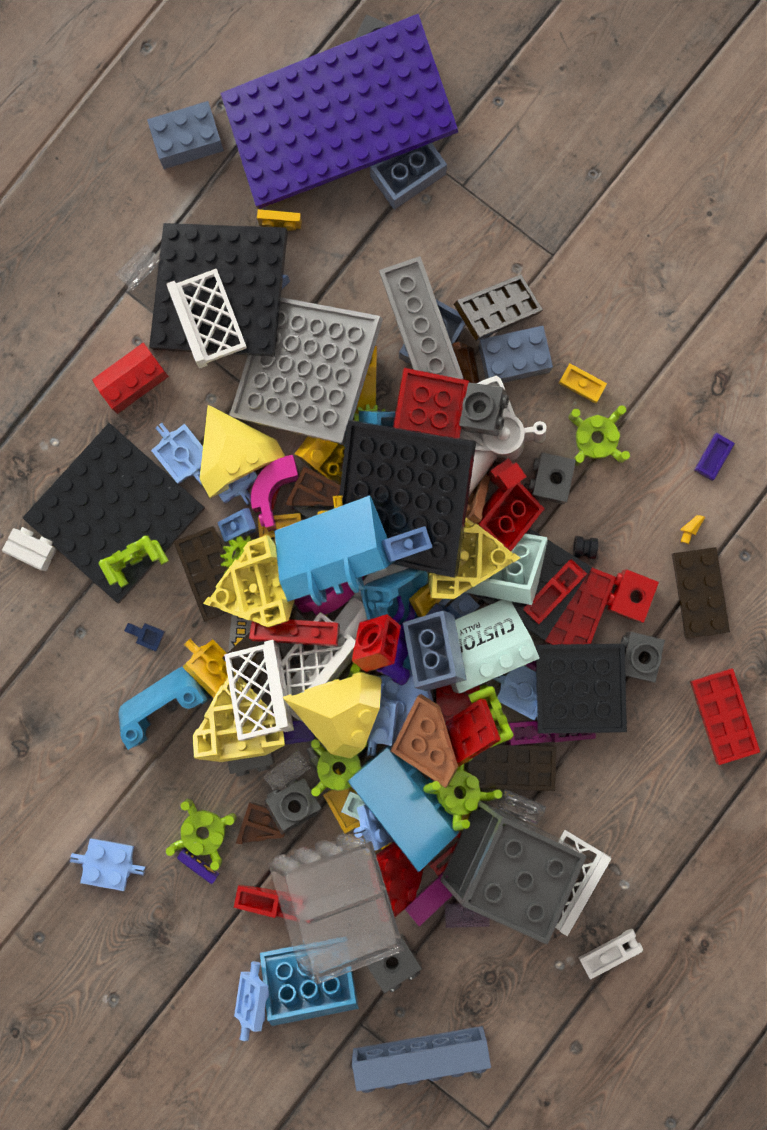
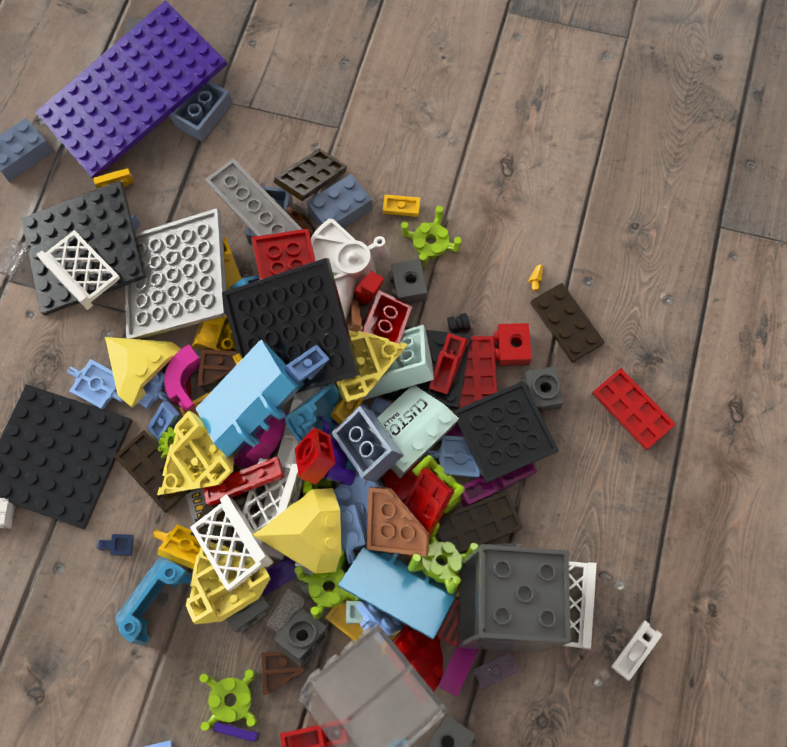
camera: 20 degrees left, 15 degrees down
(129, 378) = (34, 343): red slope -> none
(133, 554) = (79, 477): lime plate -> none
(491, 419) = (333, 234): dark grey brick -> none
(714, 456) = (528, 219): dark purple tile -> none

